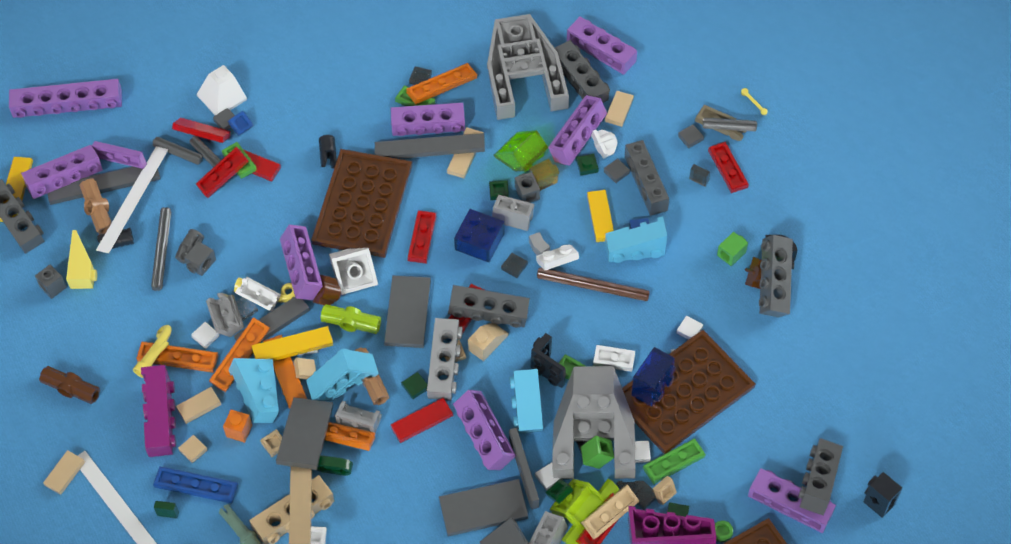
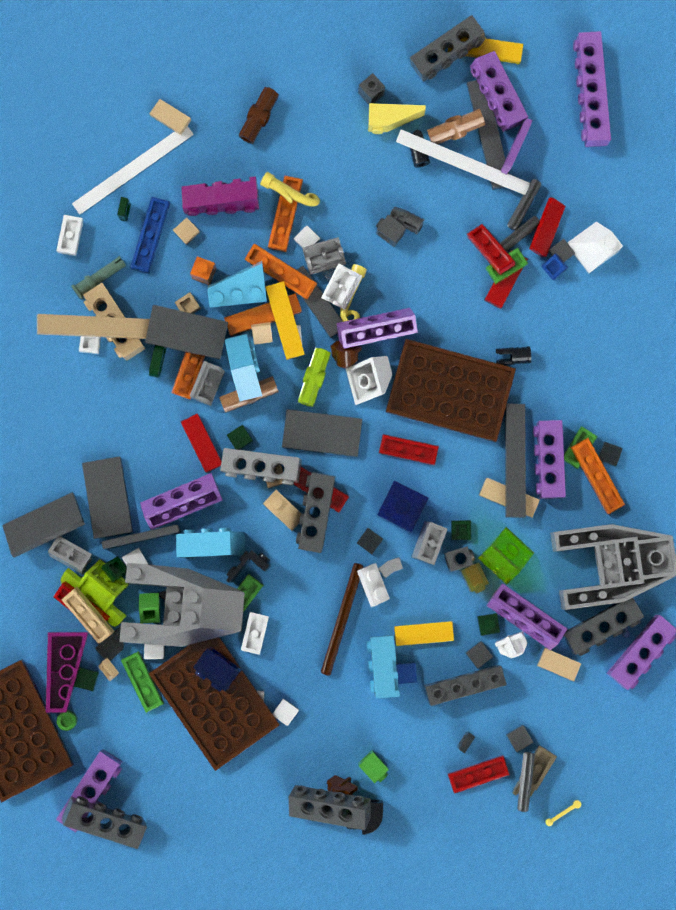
camera: 90 degrees right, 25 degrees up
(161, 249) = (407, 193): dark grey axle -> none
(198, 405) = (231, 235): tan tile -> none
(882, 494) = (83, 880): black brick -> none

